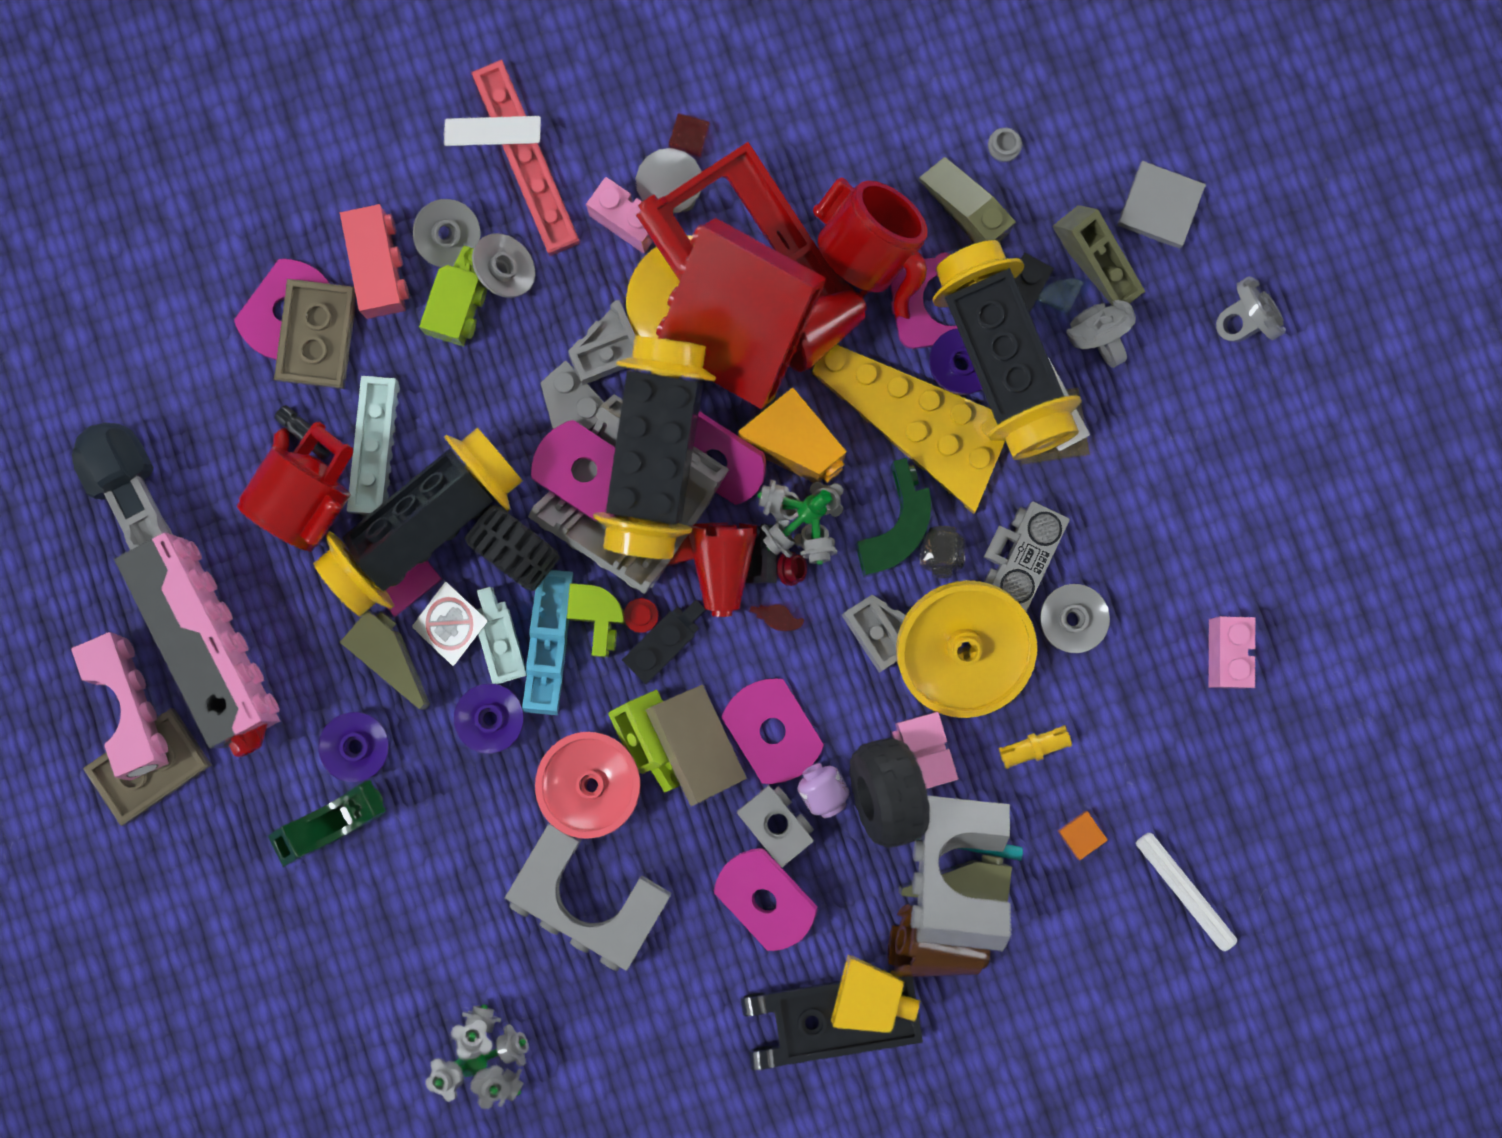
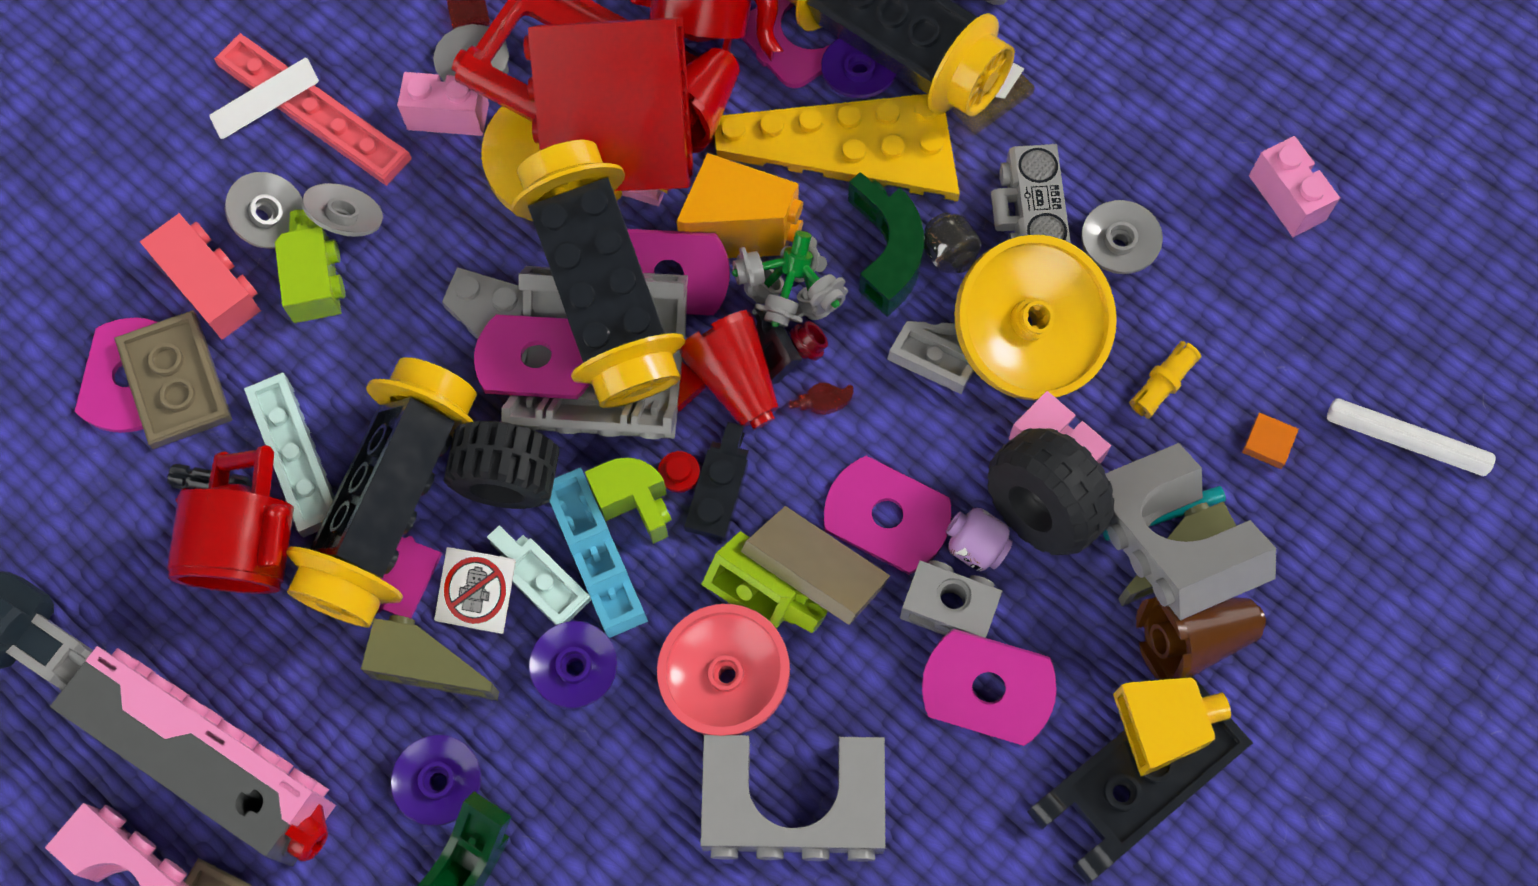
camera: 25 degrees left, 15 degrees down
(603, 345) = (491, 234): light grey wing -> none

